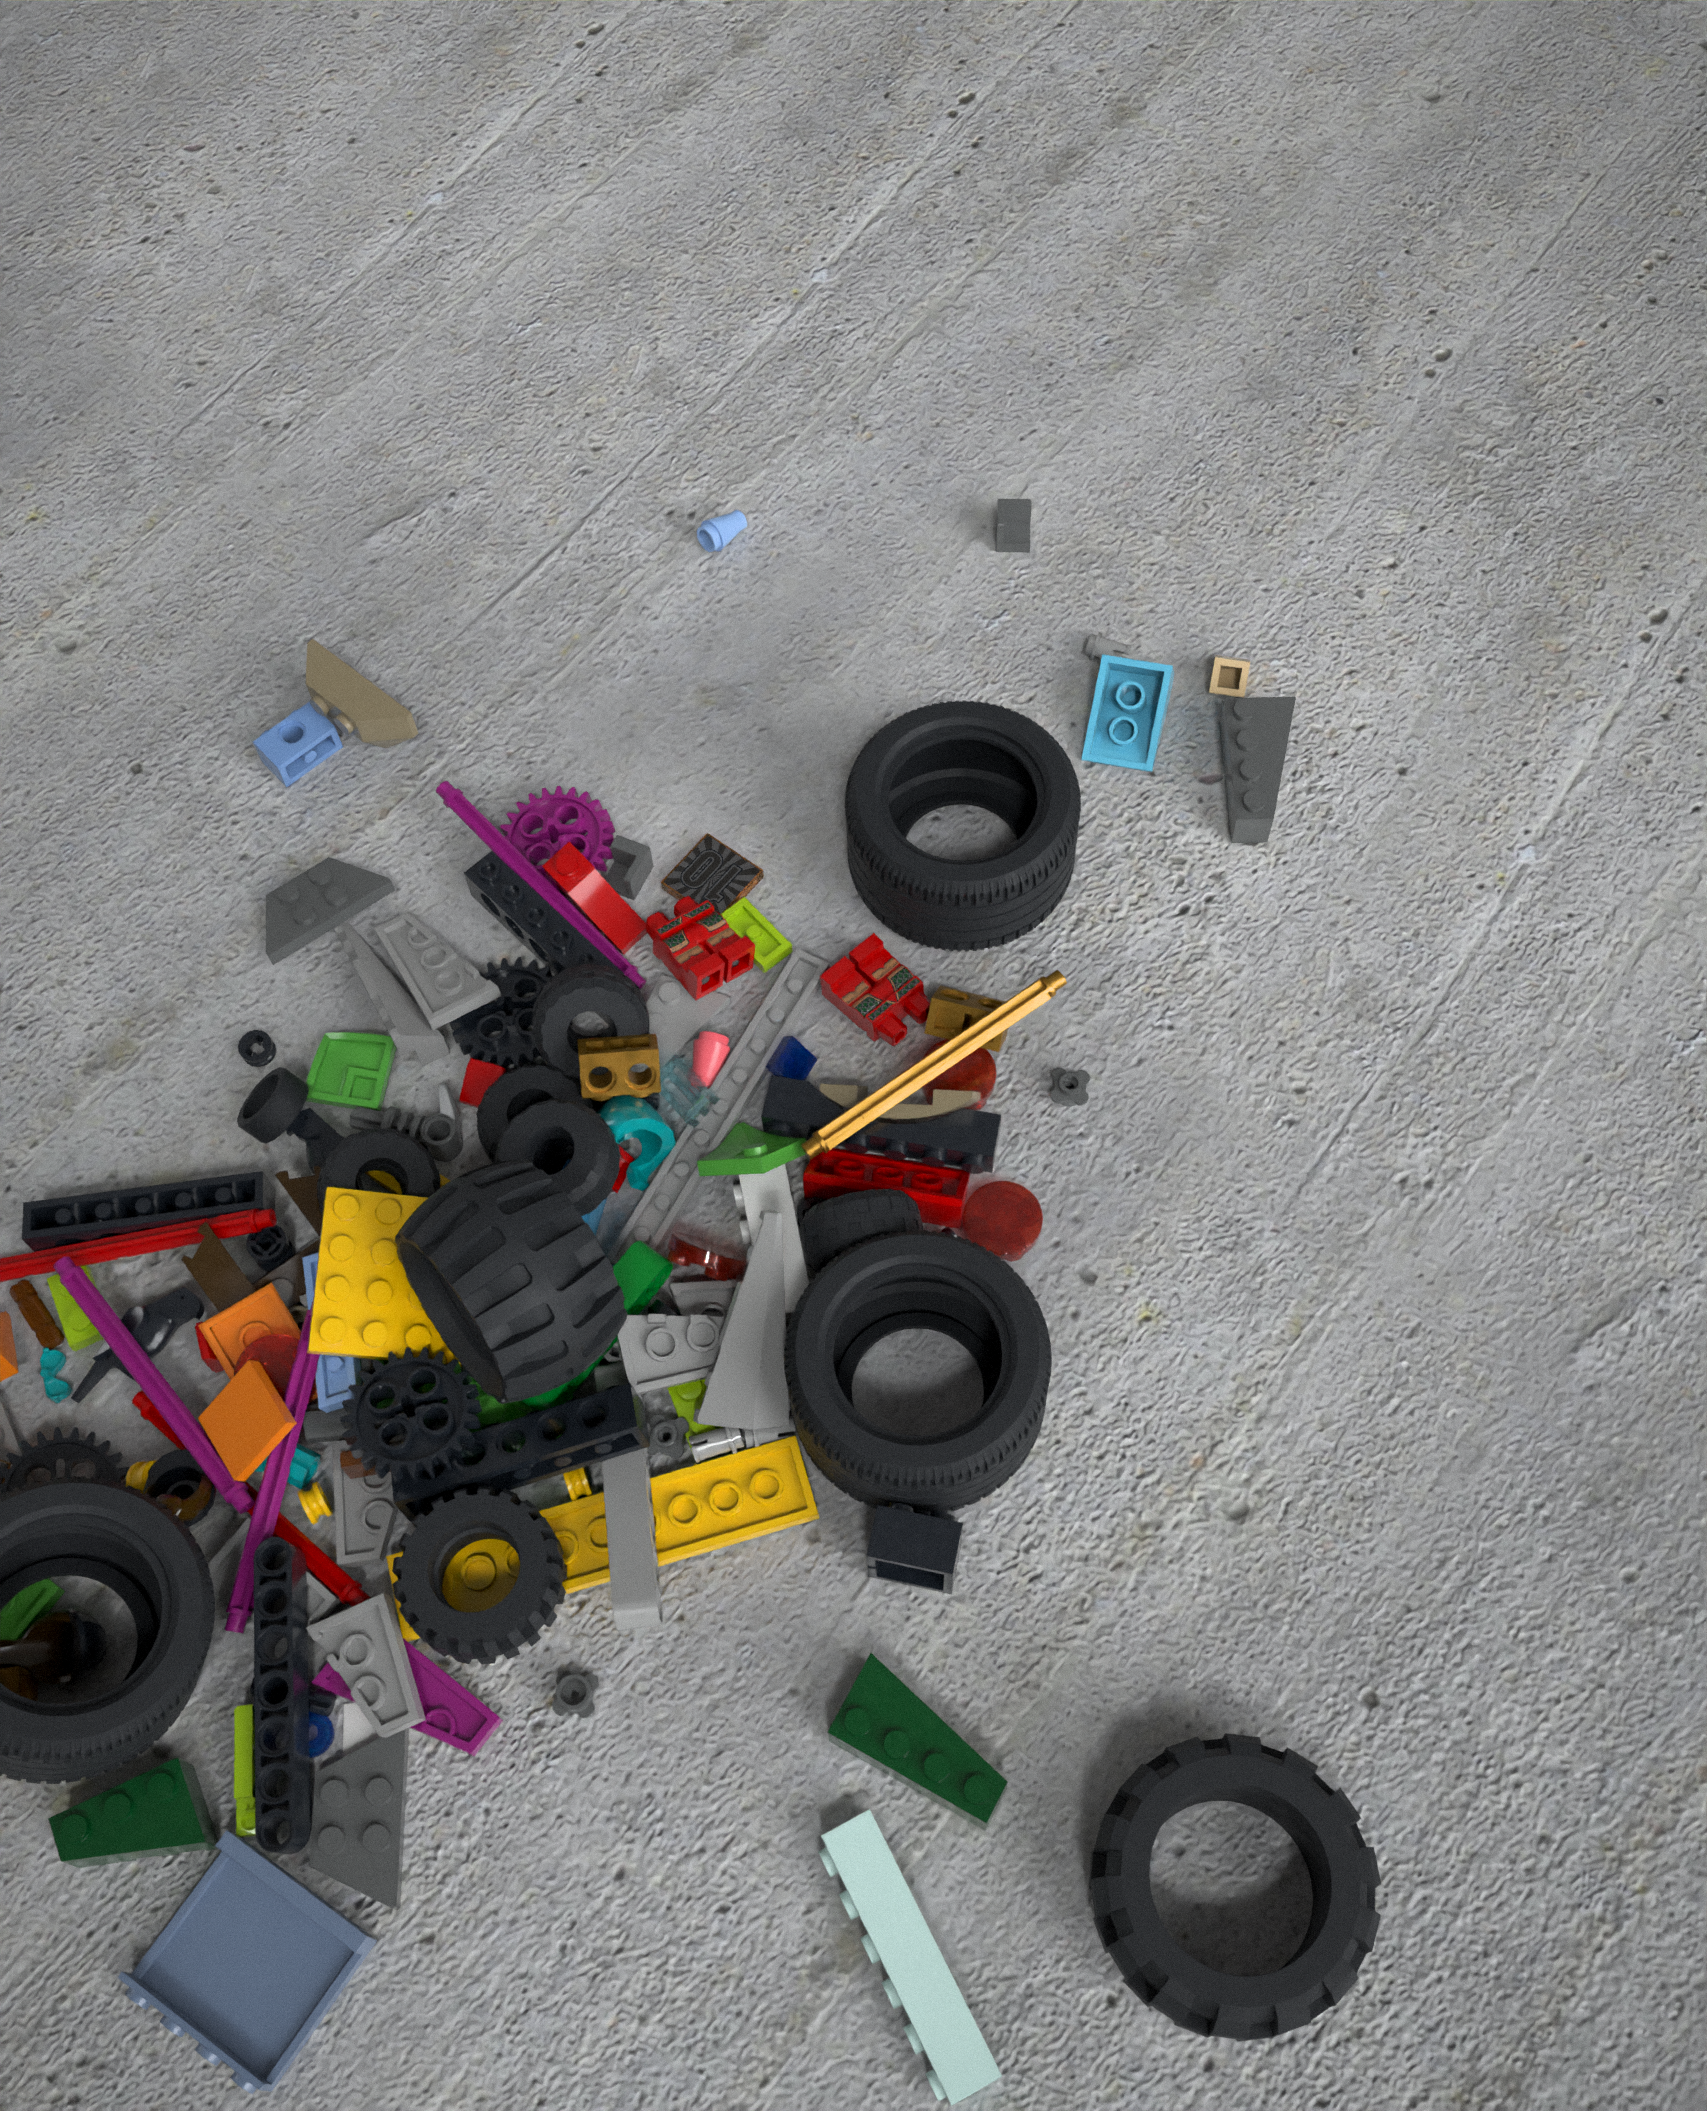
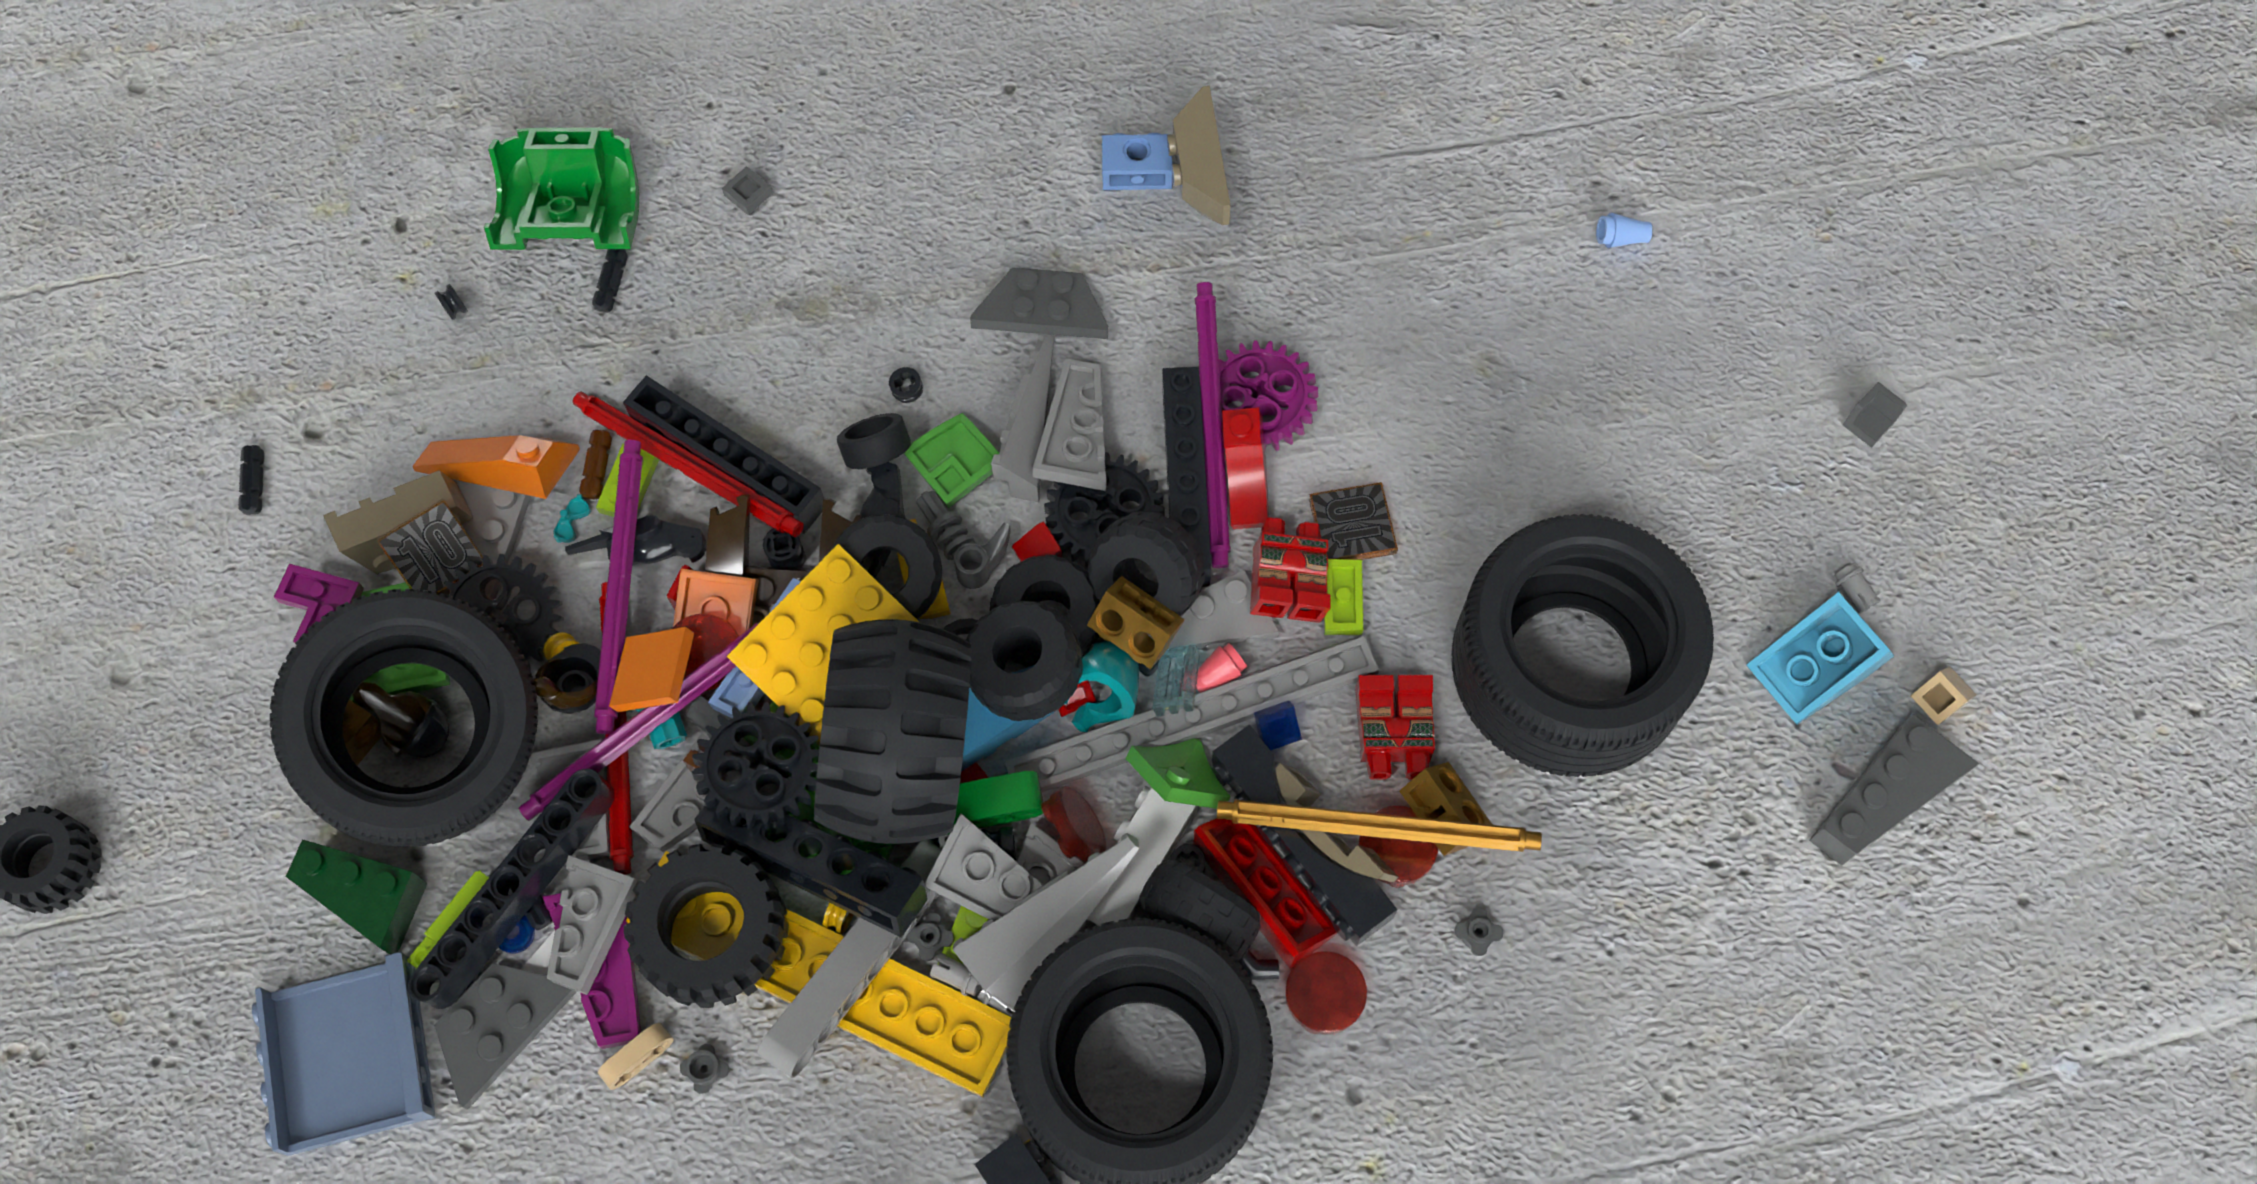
camera: 40 degrees right, 5 degrees up
(315, 1503) = (654, 767): yellow bush -> none
(509, 1734) = (635, 1056): none -> tan beam
(630, 867) = (1296, 463): dark grey panel -> none

